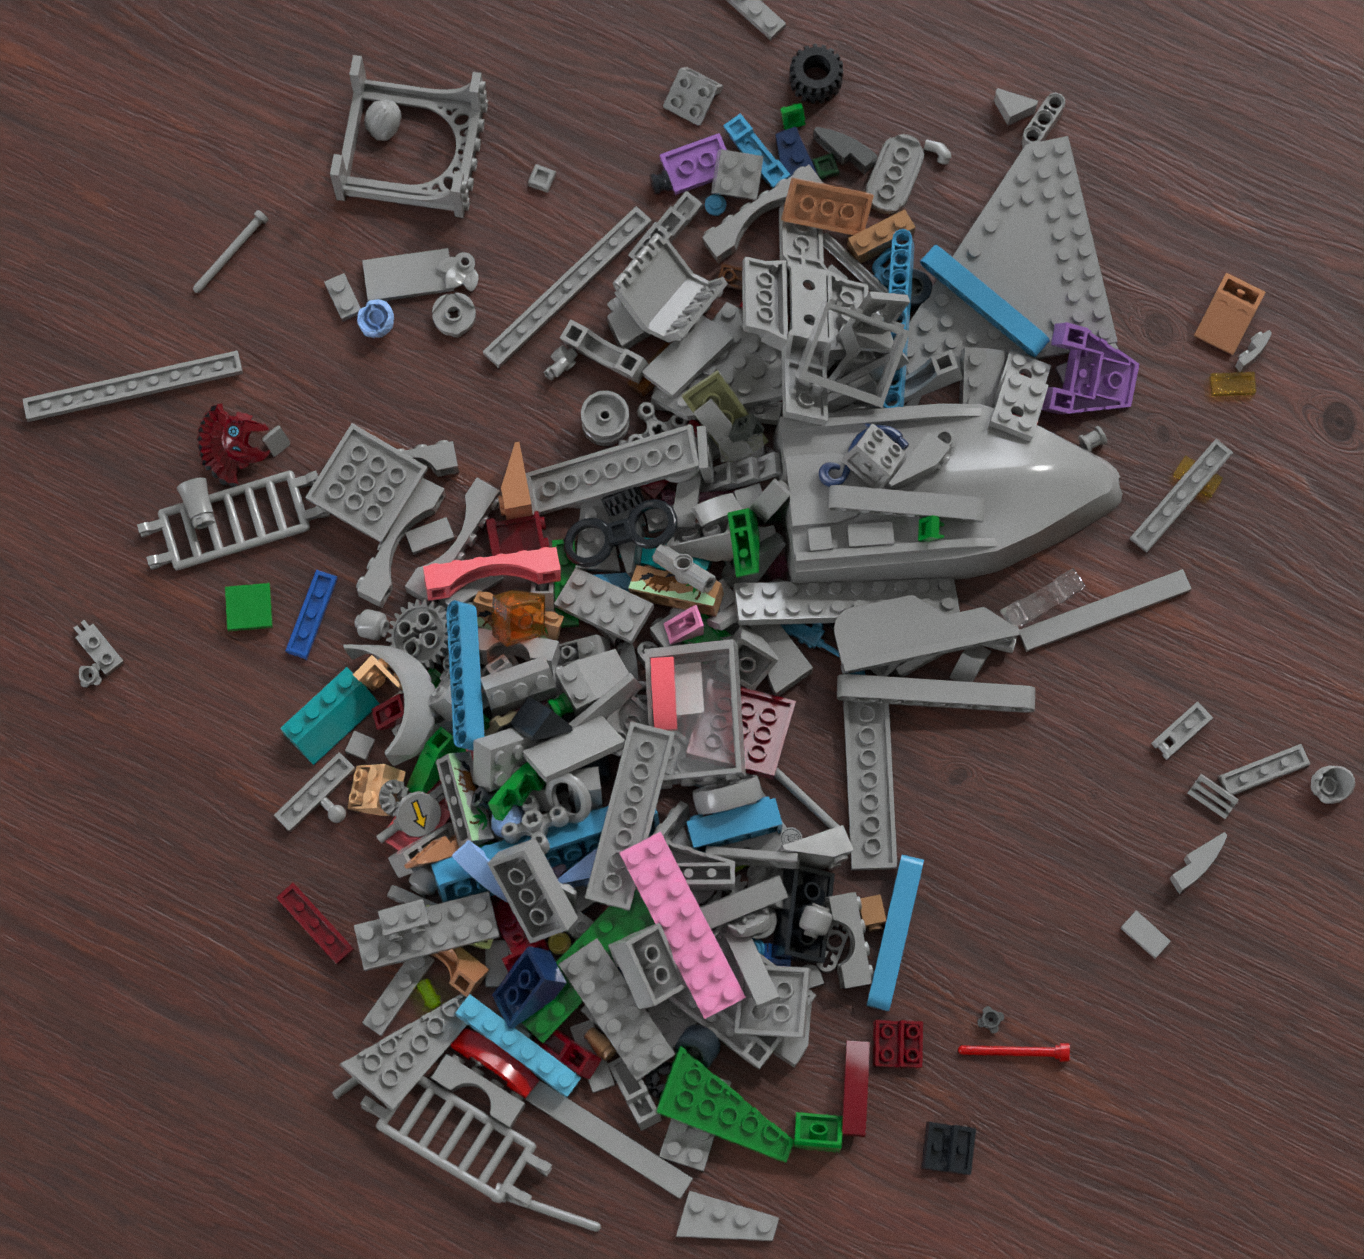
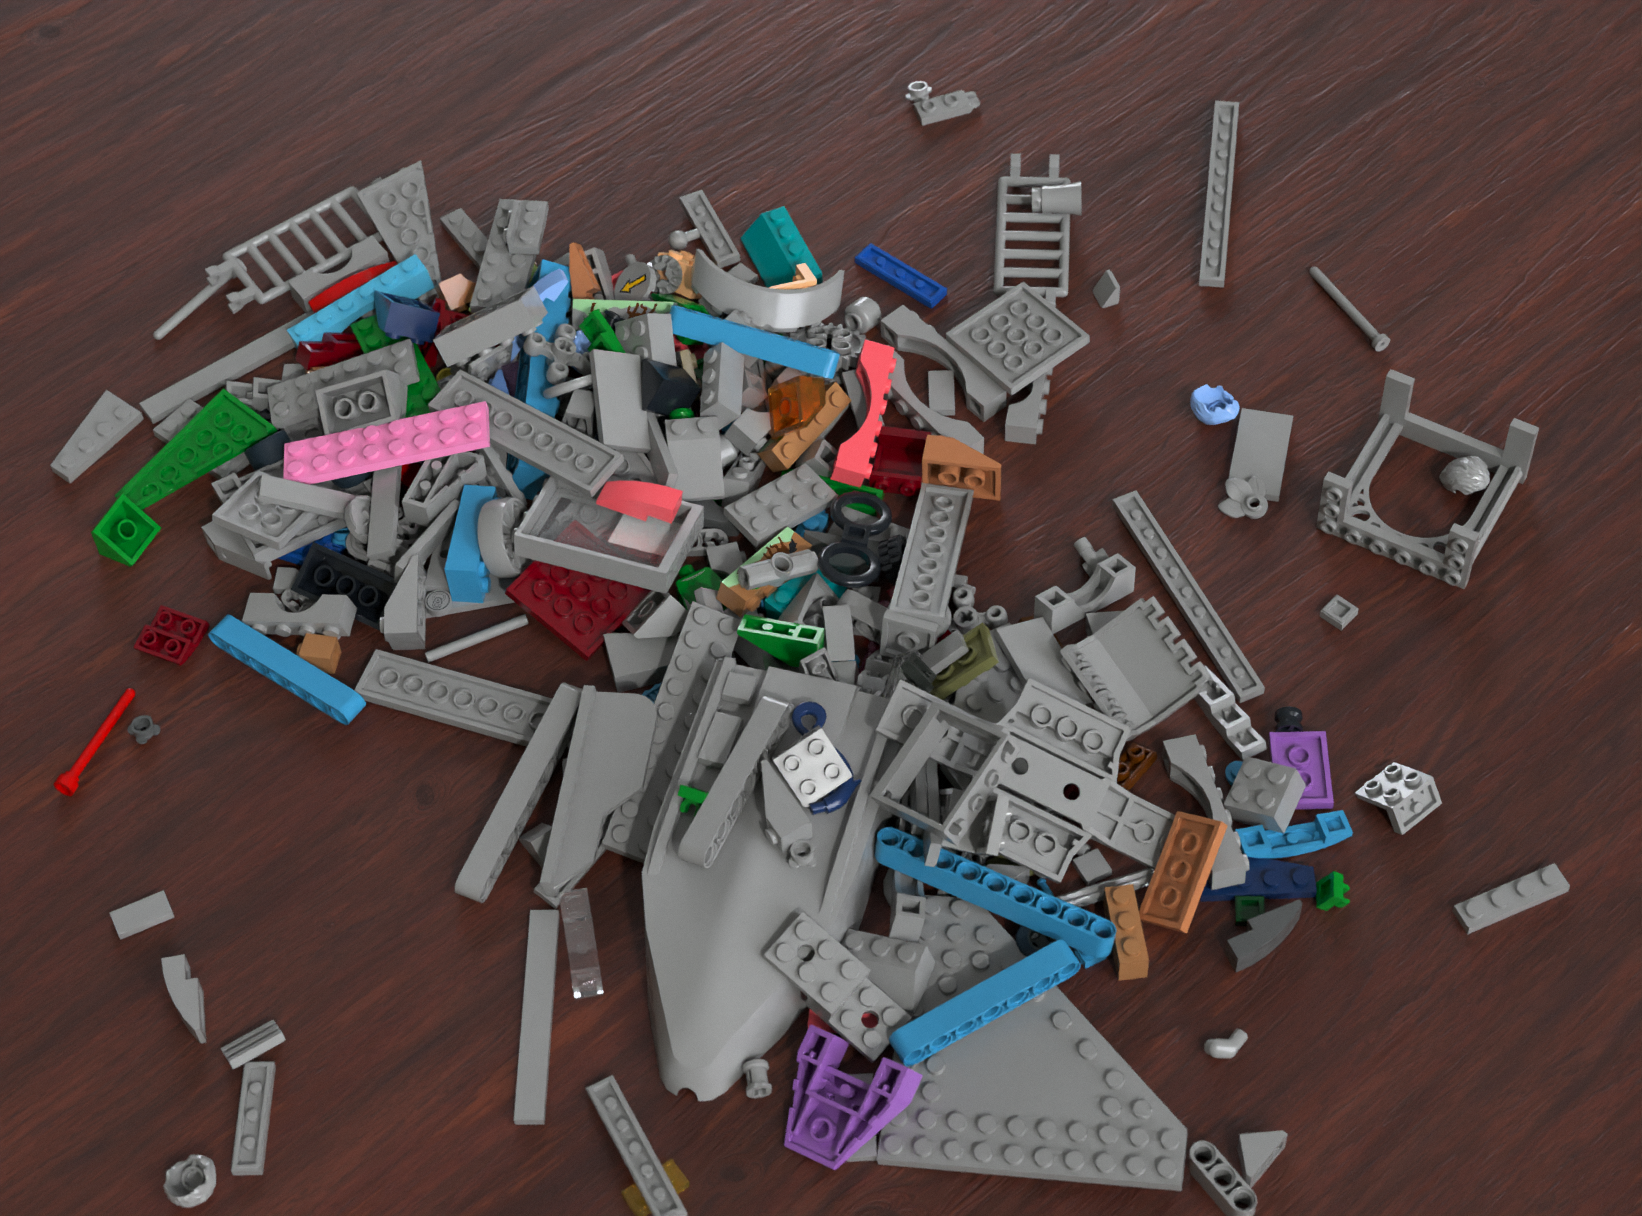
camera: 115 degrees right, 20 degrees down
(226, 445) = (1120, 244): dark red piece -> none
(248, 607) = (931, 225): green tile -> none
(315, 923) = (583, 194): dark red plate -> none
(343, 297) = (1256, 390): light grey plate -> none
(428, 994) = (457, 264): clear neon green pin -> none
(456, 326) = (1191, 492): light grey plate -> none
(605, 405) = (1004, 575): light grey wheel -> none
(684, 626) = (716, 568): bright pink slope -> none
(815, 920) = (331, 579): light grey head -> none
(816, 58) = (1384, 913): black tyre -> none
(855, 1089) = (148, 578): dark red slope -> none
(895, 173) = (1212, 986): light grey tile -> none
(948, 1148) = (39, 646): black slope -> none
(1182, 730) = (348, 1043): light grey plate -> none

